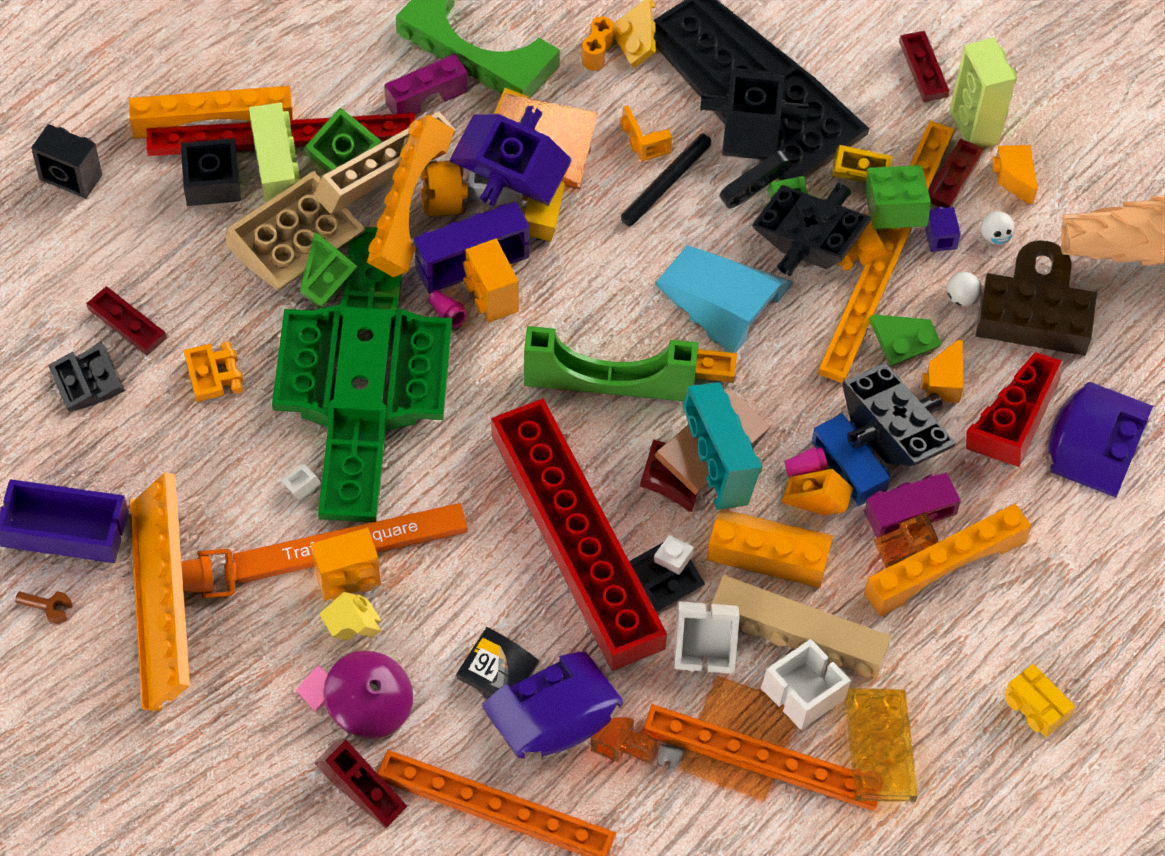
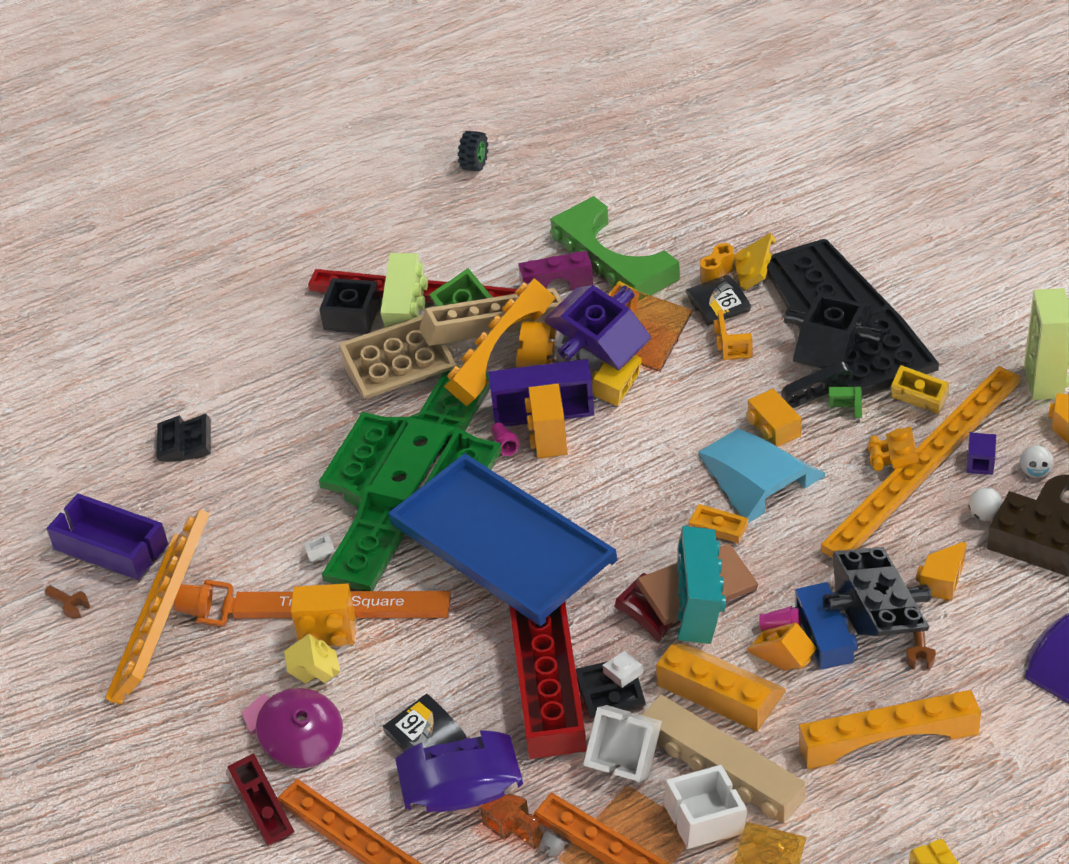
camera: 25 degrees right, 15 degrees down
(67, 161) = (239, 279): black brick -> none
(126, 320) = (235, 402): dark red plate -> none
(200, 106) = (346, 257): light orange arch -> none
(204, 373) = (279, 453): light orange plate -> none
(324, 271) = (407, 390): bright green wing -> none
(503, 435) = (502, 538): none -> blue piece
(555, 366) = (578, 498): bright green arch -> none
(613, 86) = (718, 295): none -> black slope
(665, 179) = (738, 375): black axle -> none
(722, 227) = (774, 418): none -> light orange brick
(810, 227) = (851, 427): black slope -> none
(897, 197) = (941, 414): bright green brick -> none
(904, 337) = (913, 534): bright green wing -> none
(910, 539) = (859, 698): clear orange brick -> none
(924, 66) = (1009, 325): dark red plate -> none
(930, 495) = (871, 676): magenta brick -> none
(948, 465) = (920, 651): none -> dark orange bar
(955, 174) = (1009, 412): dark red plate -> none
(1014, 417) = (1003, 615): red wedge -> none

